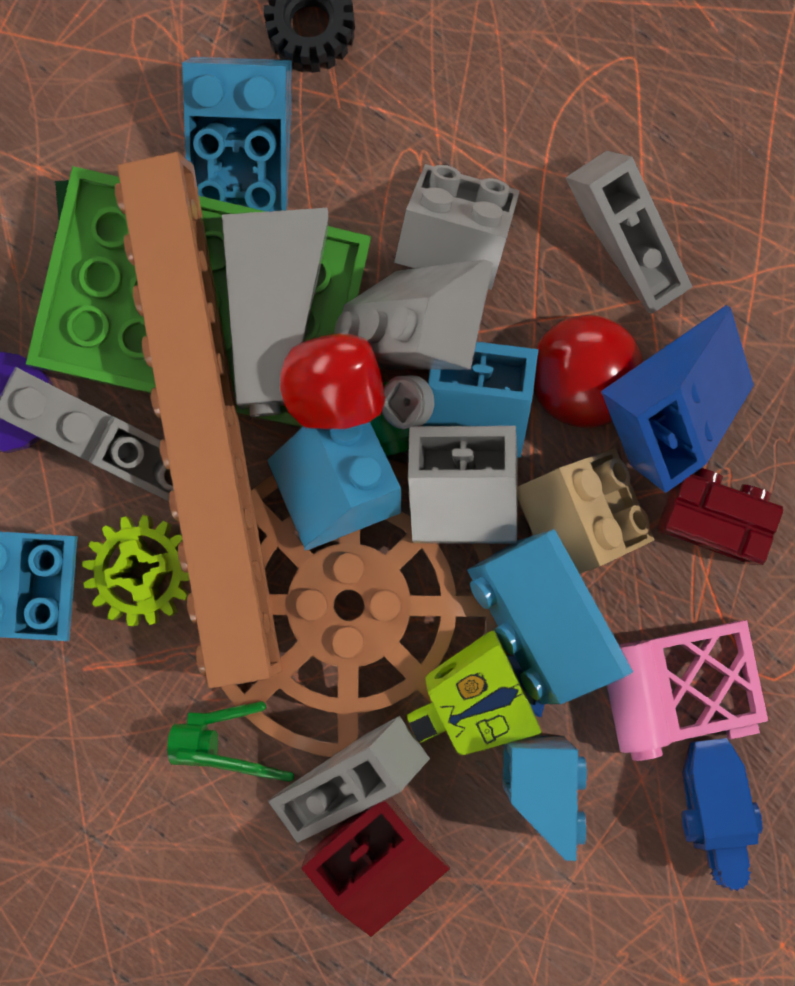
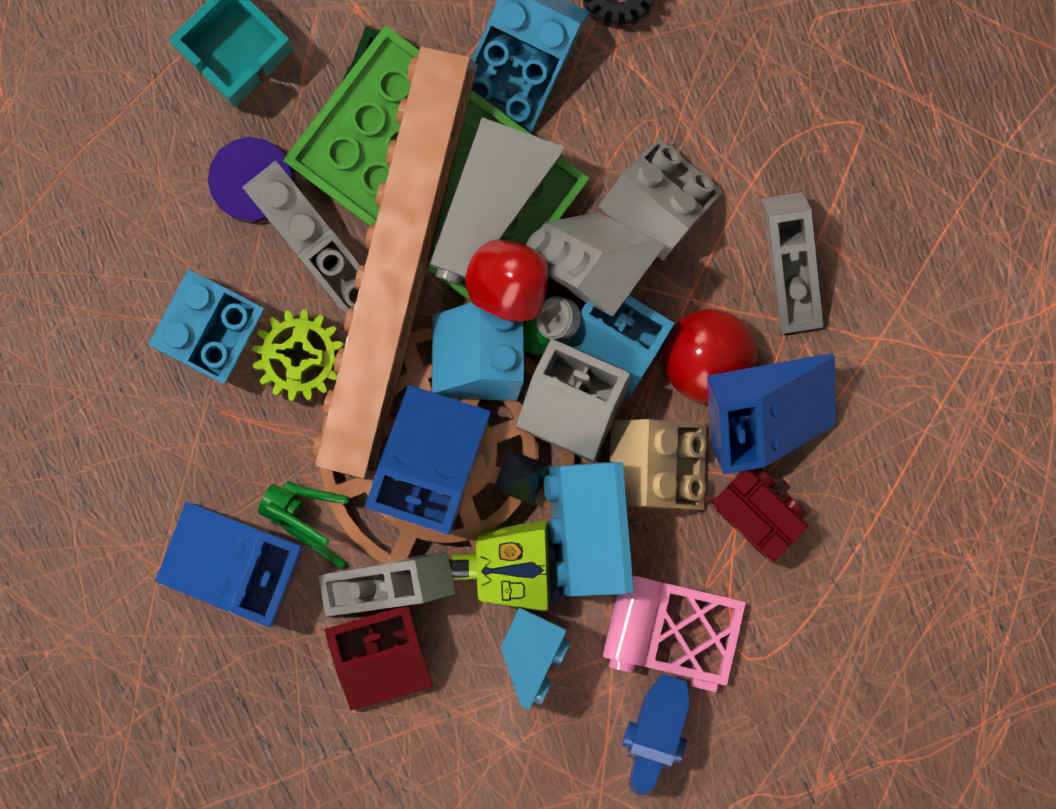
camera: 25 degrees right, 0 degrees up
(167, 837) = (230, 565): none -> blue slope
(332, 627) = (428, 460): none -> blue slope
(443, 595) = (520, 477): none -> black slope

